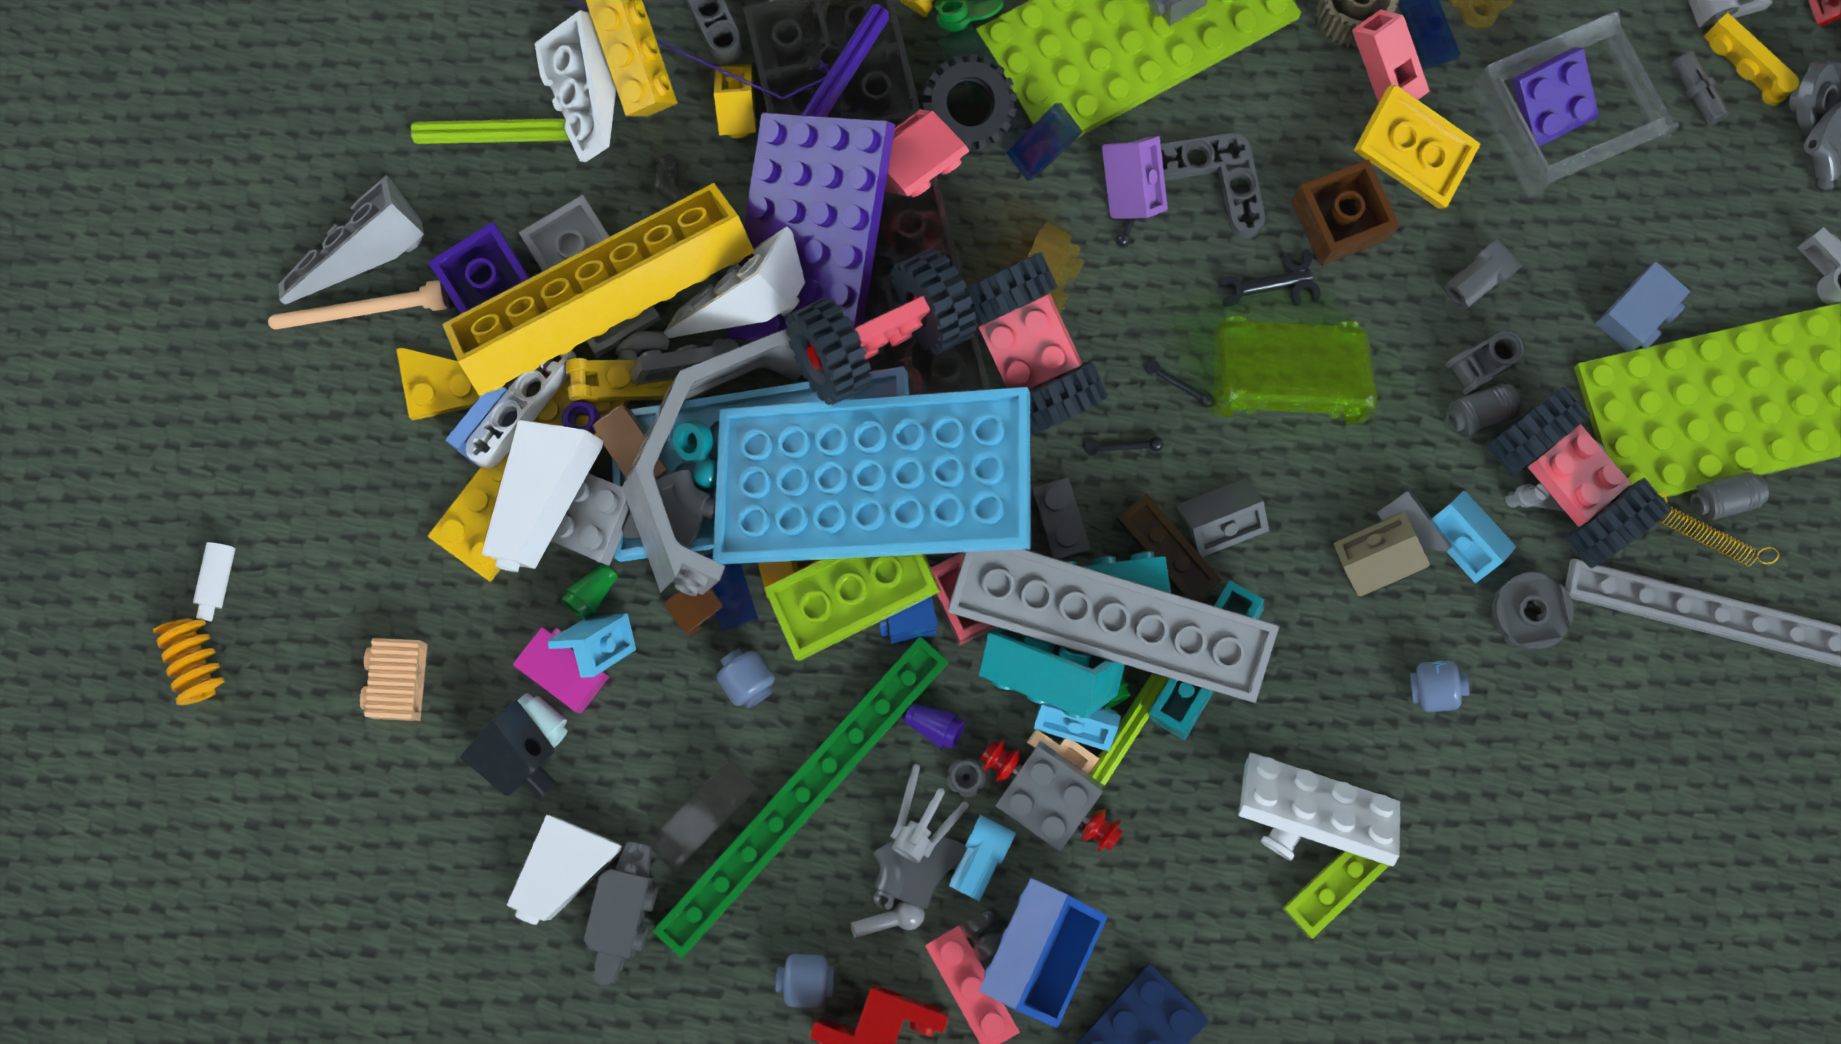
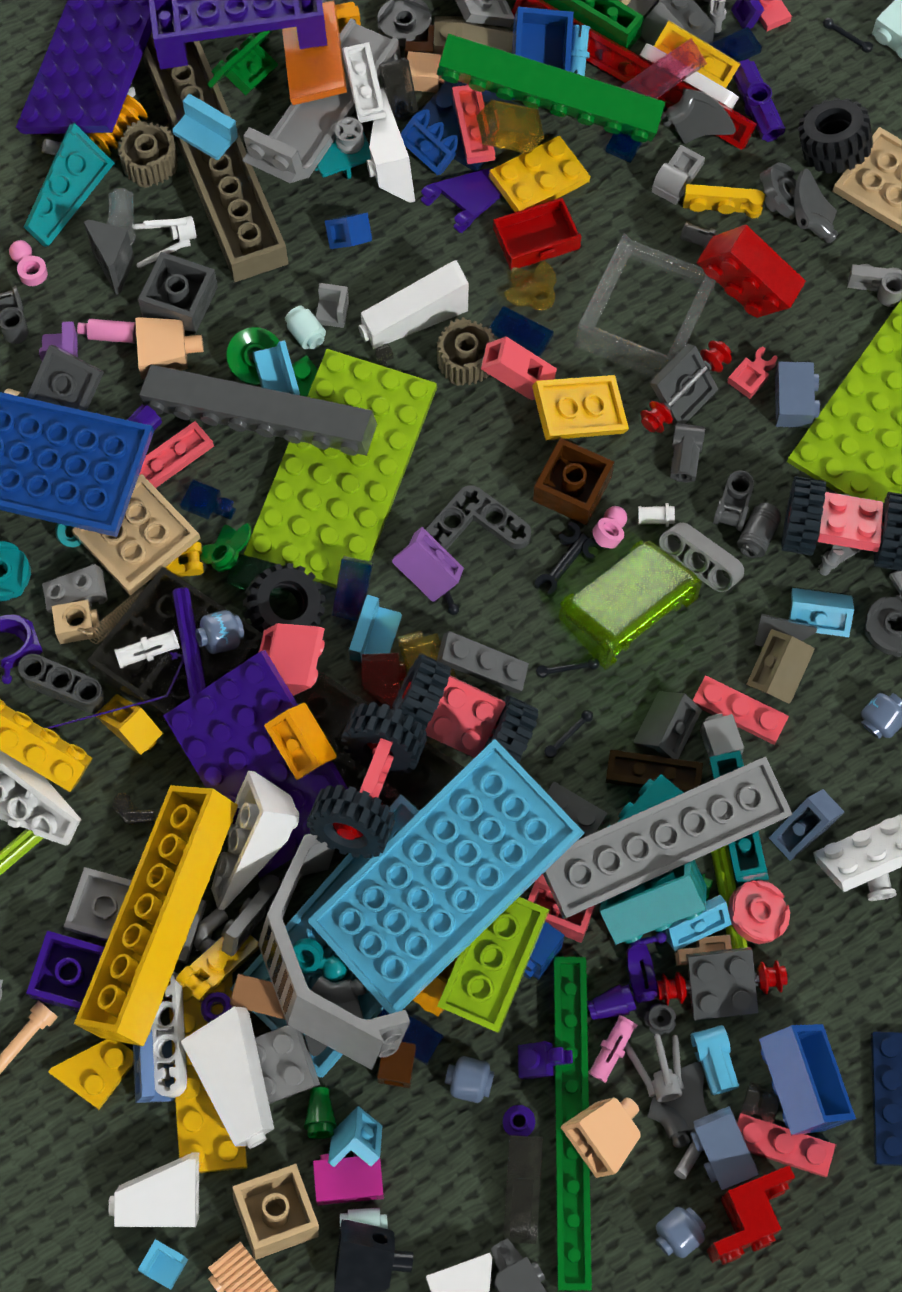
camera: 40 degrees left, 10 degrees down
(343, 600) = (163, 1264): none -> medium azure panel
(390, 541) = (160, 1197): none -> white slope
(471, 641) = (275, 1211): none -> tan brick
(755, 766) = (518, 1110): none -> dark purple plate
(802, 39) = (147, 648): none -> white pin
(816, 834) = (604, 1134): none -> light nougat torso
(822, 716) = (538, 1059): none -> dark purple plate
(854, 237) = (300, 740): none -> light orange panel
(873, 773) = (615, 1047): none -> bright pink pin
(879, 77) = (220, 632): none -> sand blue head
(911, 945) = (725, 1148): none -> sand blue brick
(997, 245) = (383, 676): none -> clear red slope
(998, 700) = (637, 953): none -> dark purple helmet
(1028, 201) = (374, 630): none -> medium azure panel
(1101, 311) = (482, 662): none -> dark grey plate
(1146, 761) = (759, 911): none -> coral tile
(1263, 570) = (721, 735): none -> light grey brick
(1267, 721) = (806, 824): none -> sand blue slope
(1305, 562) = (747, 712): none -> coral plate
(1336, 287) = (609, 530): none -> bright pink plate
(1396, 311) = (657, 515): none -> white pin
(1414, 400) = (715, 557): none -> light grey beam
(1540, 208) = (685, 385): none -> dark grey plate
(1556, 95) = (632, 311): dark purple plate -> none
(1617, 254) = (752, 375): none -> coral plate
(1711, 149) = (751, 271): none -> red brick

